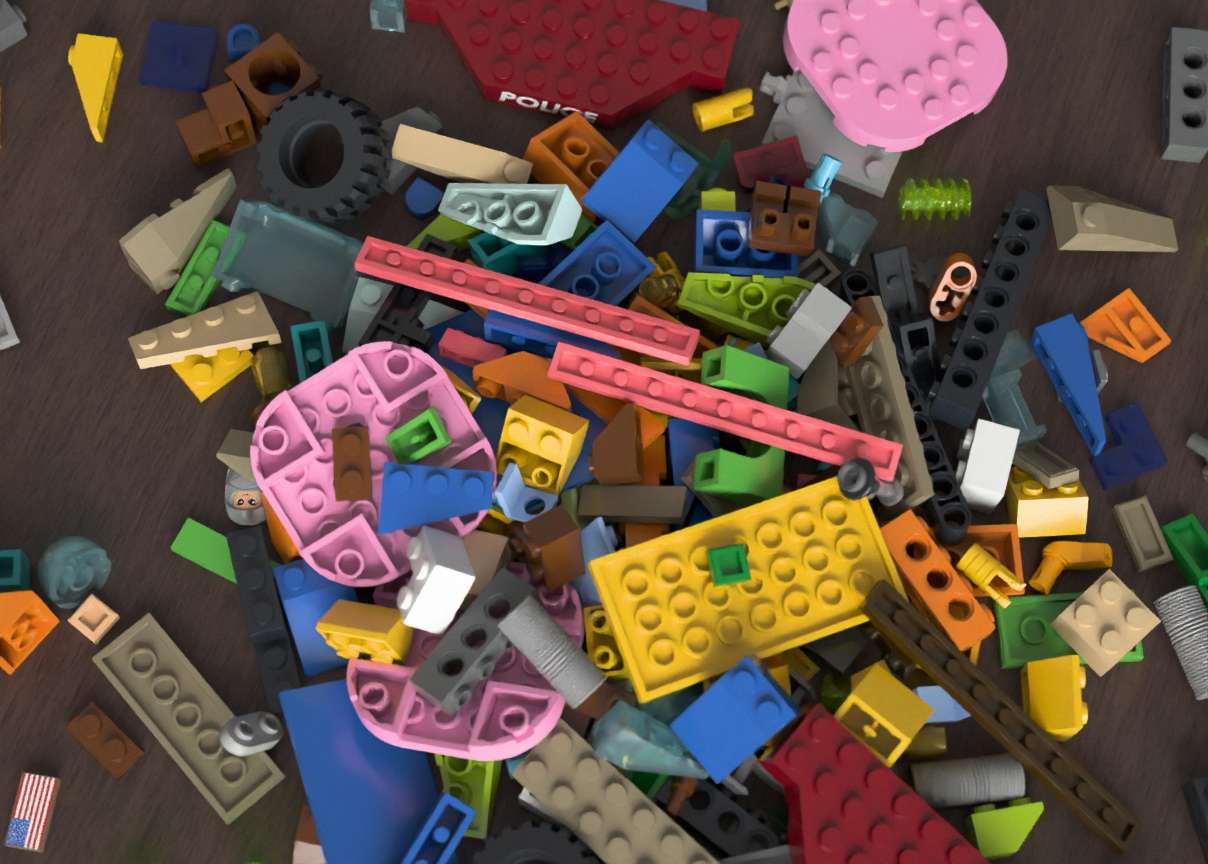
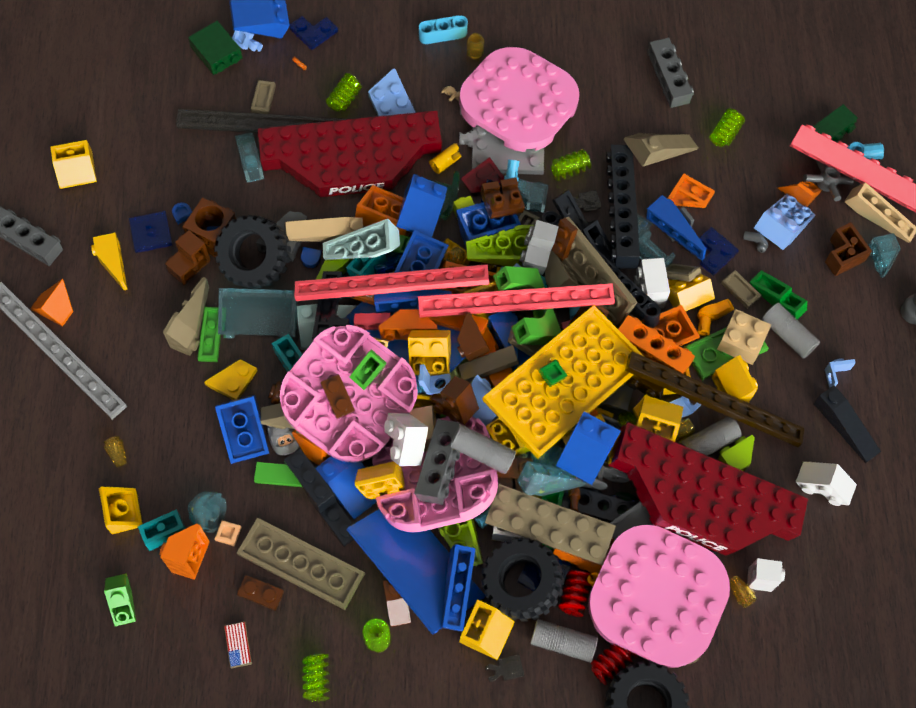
camera: 20 degrees left, 5 degrees down
(184, 451) = (242, 428): none -> blue slope
(205, 332) = (236, 356): tan wing -> none
(251, 733) = (339, 556): light grey plate -> none
(270, 372) = (269, 372): clear yellow brick -> none
(430, 494) = (384, 396): blue wing -> none
(859, 480) = (599, 308): clear piece -> none
(960, 287) = (604, 201): orange beam -> none
(981, 569) = (675, 331): yellow hinge -> none

